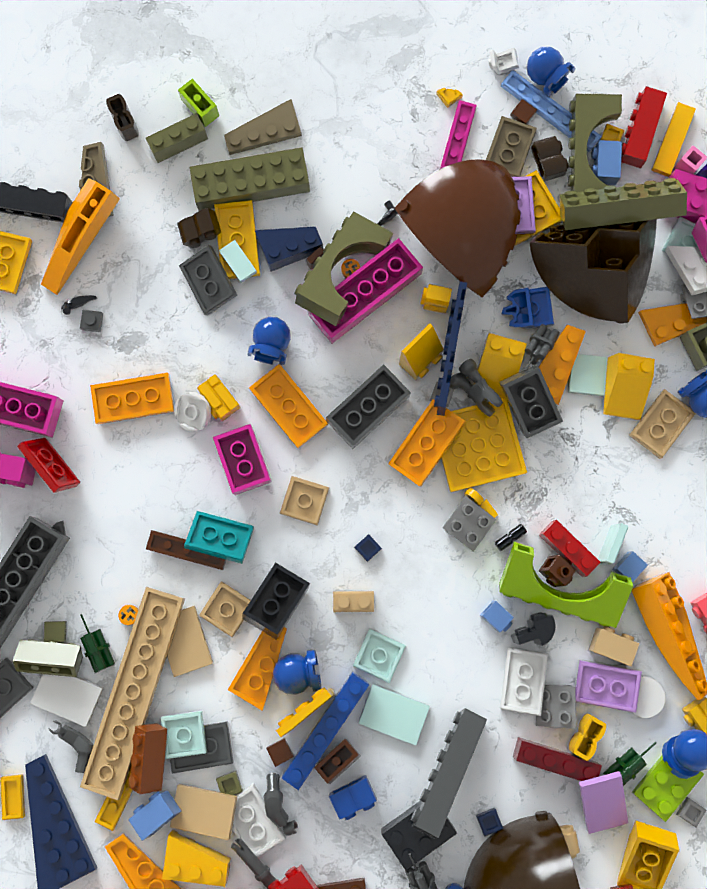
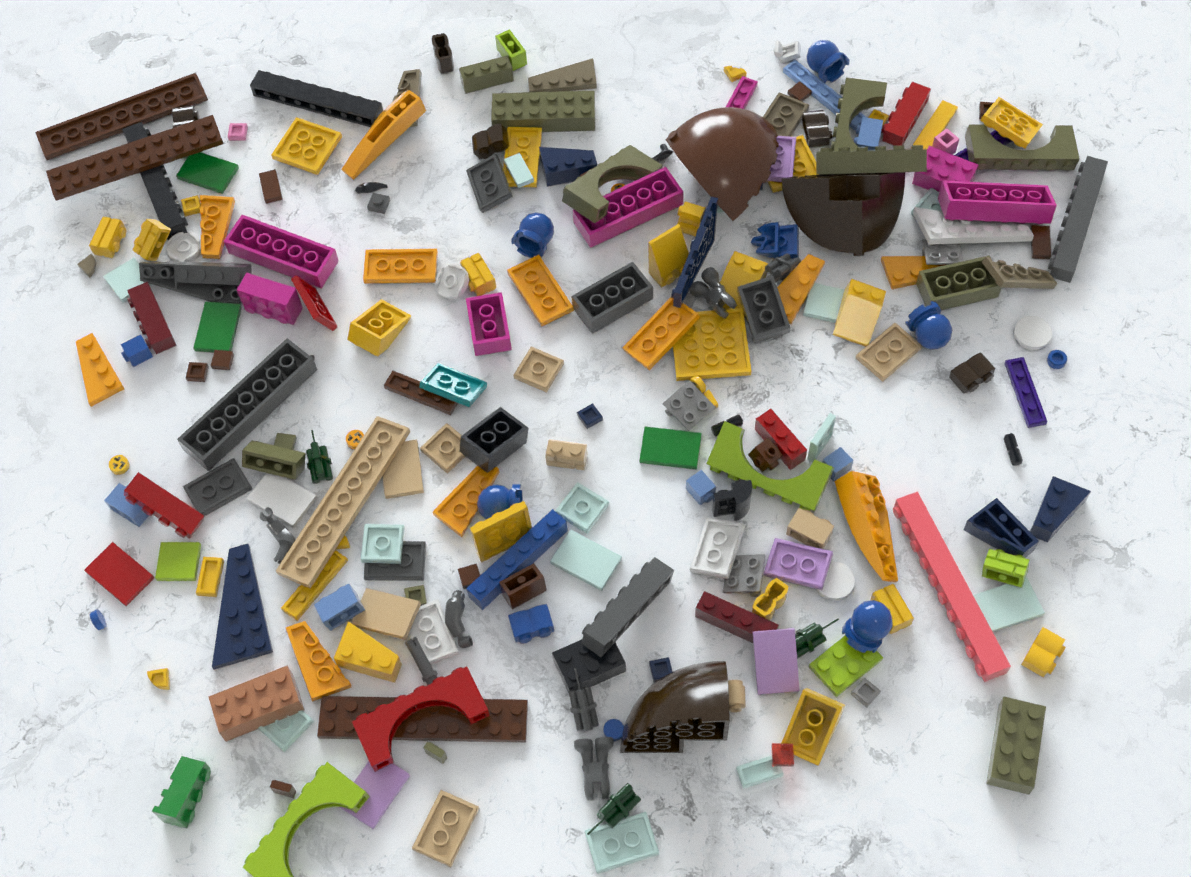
camera: 15 degrees right, 20 degrees down
(124, 478) = (377, 327): none -> yellow slope
(148, 758) = (344, 554): dark orange brick -> none
(457, 572) = (670, 447): none -> green tile

